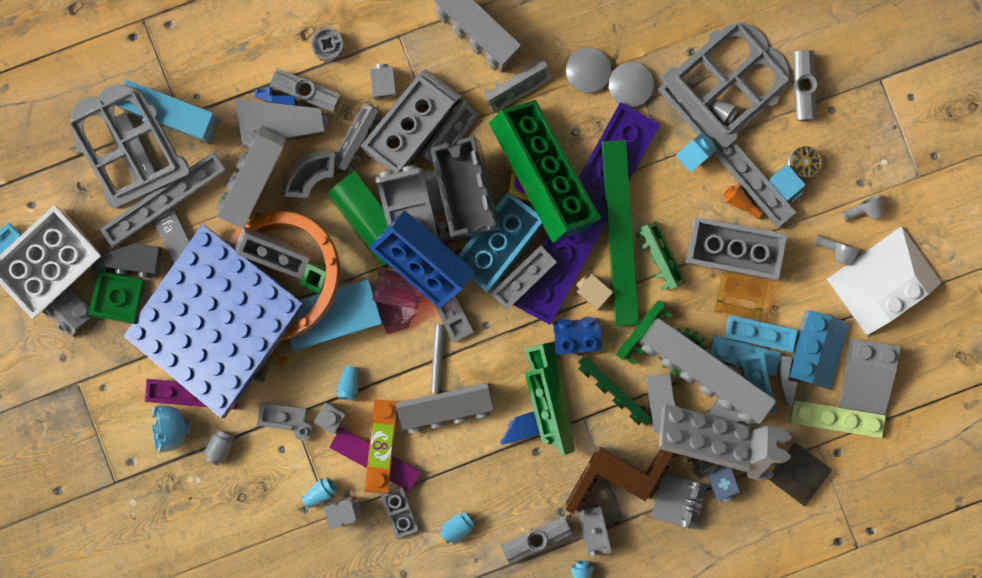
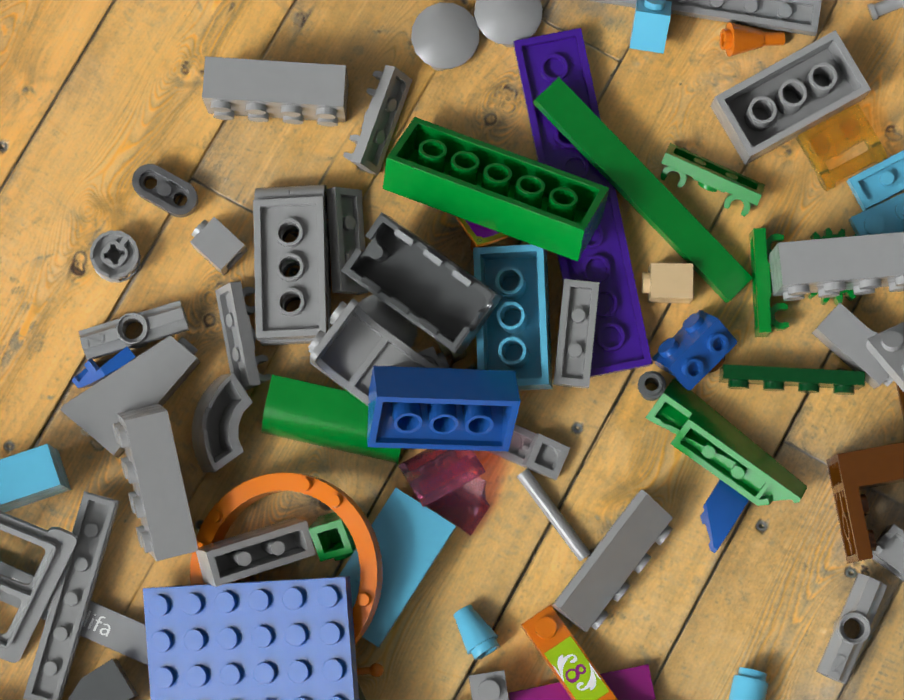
camera: 45 degrees left, 5 degrees down
(380, 32) = (166, 190): none -> flat silver plate
(539, 329) = (651, 377): none -> dark grey pin

